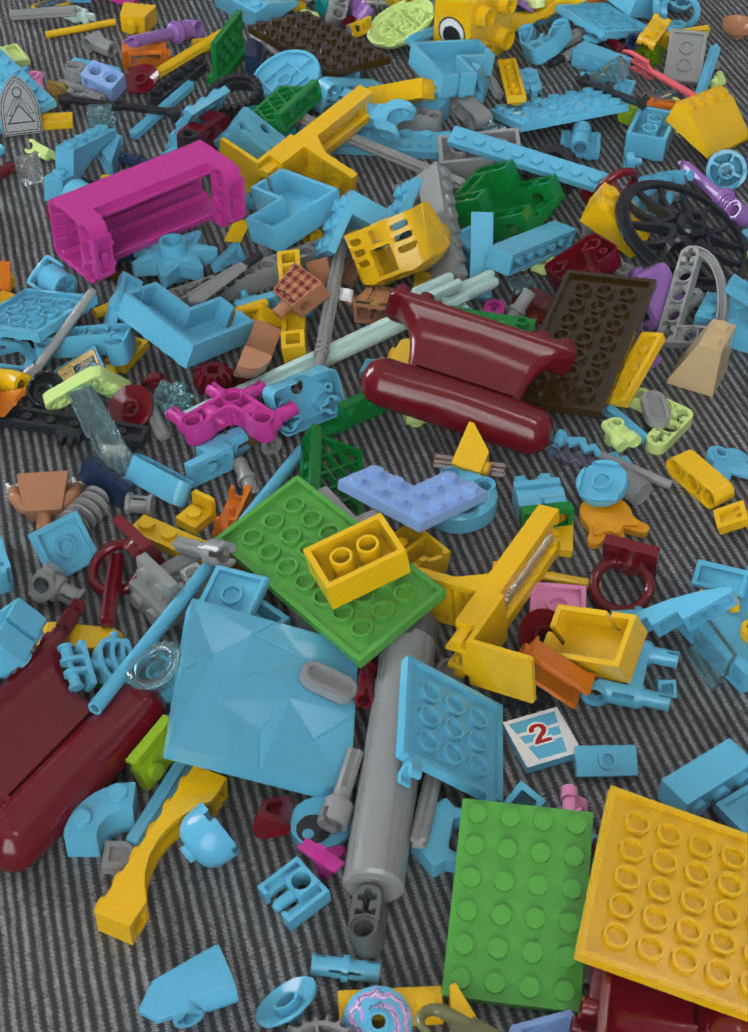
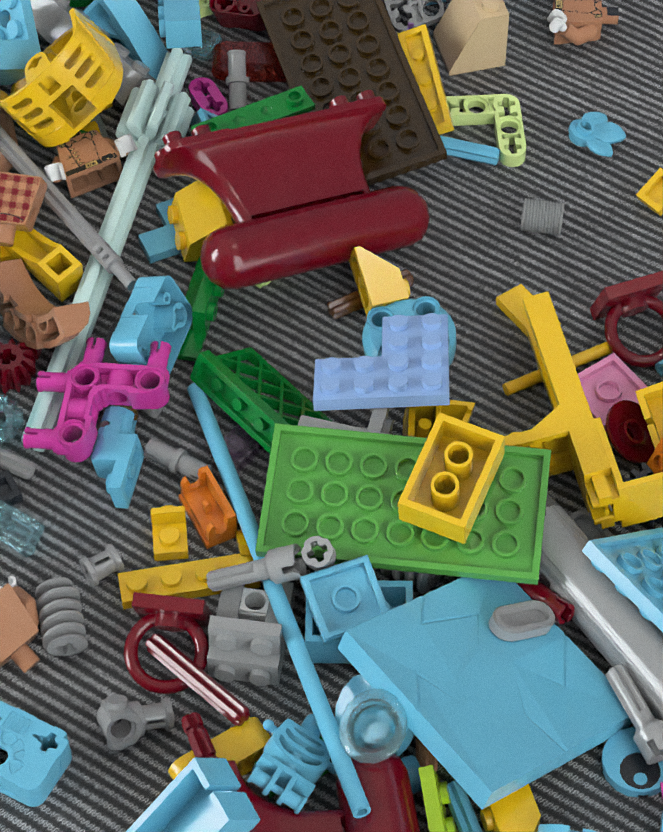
camera: 40 degrees left, 10 degrees up
(64, 543) = (89, 666): medium azure plate -> none
(99, 474) = (42, 563): dark blue brick -> none
(159, 480) = (94, 524): medium azure beam -> none
(239, 556) = (308, 551): none -> light grey bush
(273, 817) = (596, 787): dark red tile -> none
(544, 491) = (483, 291): medium azure hips -> none
(561, 438) = (481, 206): piece -> none
(602, 483) = (523, 232): medium azure tile -> none
(613, 520) = (553, 267): light orange tile -> none
(618, 435) = (474, 167): yellowish green plate -> none
(648, 475) = (519, 196): light grey piece -> none
(655, 409) = (482, 115): light grey tile -> none
(700, 479) = (592, 167): yellow beam -> none

